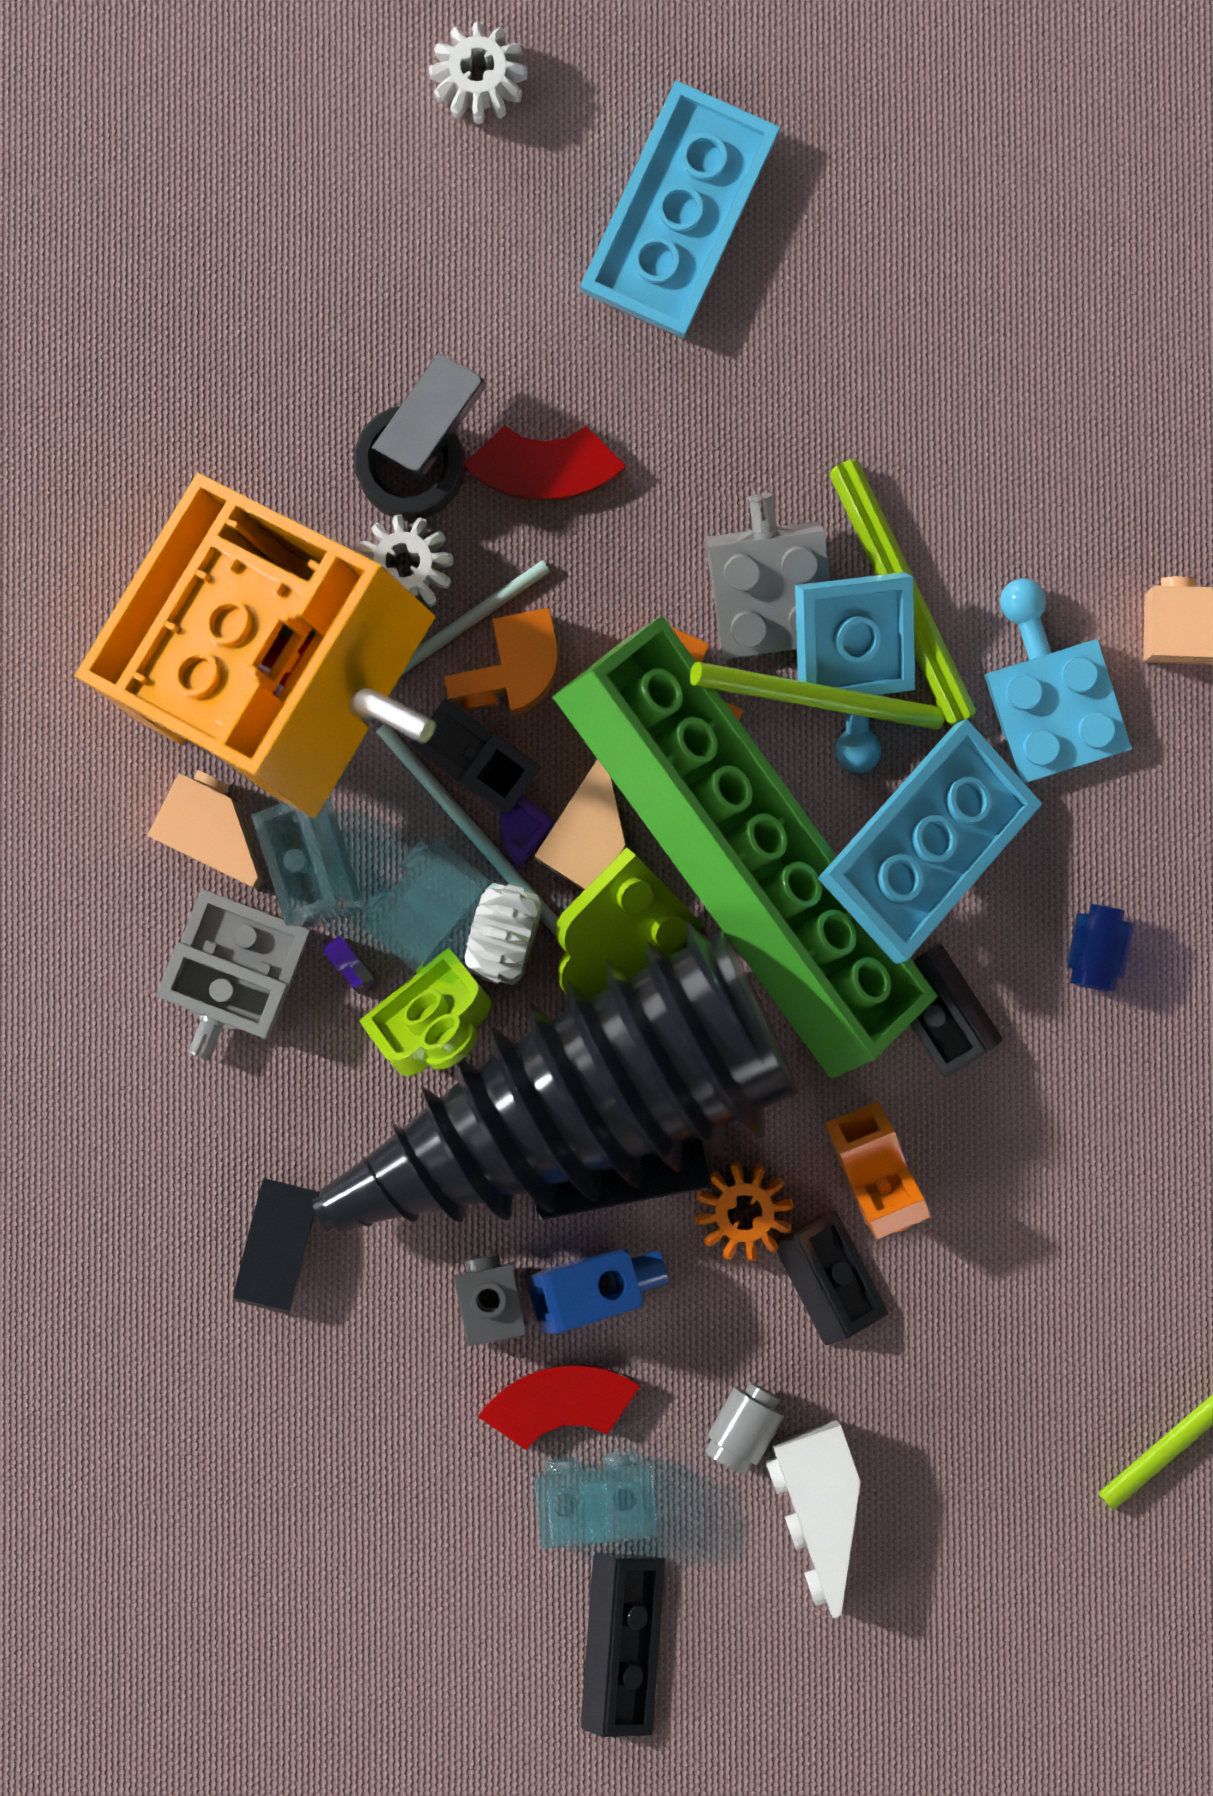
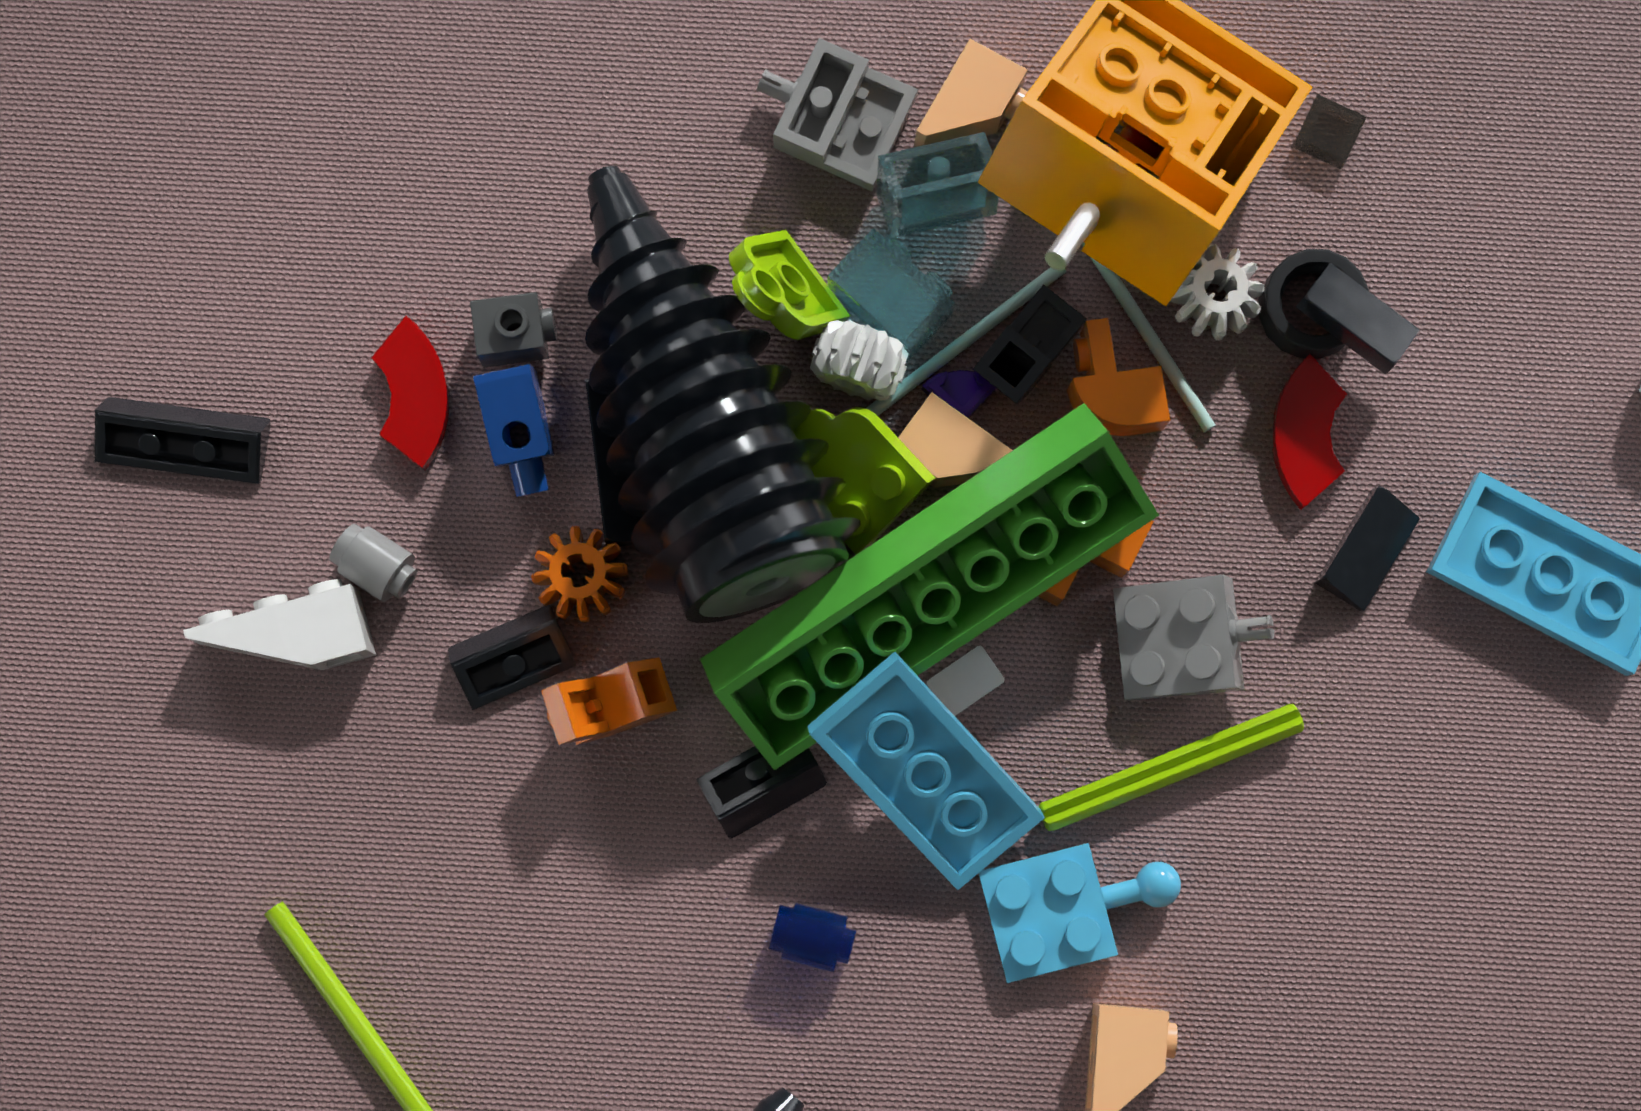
camera: 90 degrees right, 5 degrees down
(218, 451) = (1329, 131): none -> clear smoke tile
(275, 1246) = (577, 138): black slope -> none
(350, 965) = (848, 217): dark purple tile -> none
(595, 1500) = (316, 418): clear light blue brick -> none
(663, 399) = (1368, 548): none -> black slope
(816, 695) = (1073, 667): lime axle -> none
(827, 806) = (966, 680): none -> white sticker
(858, 640) = (1121, 713): medium azure plate -> none

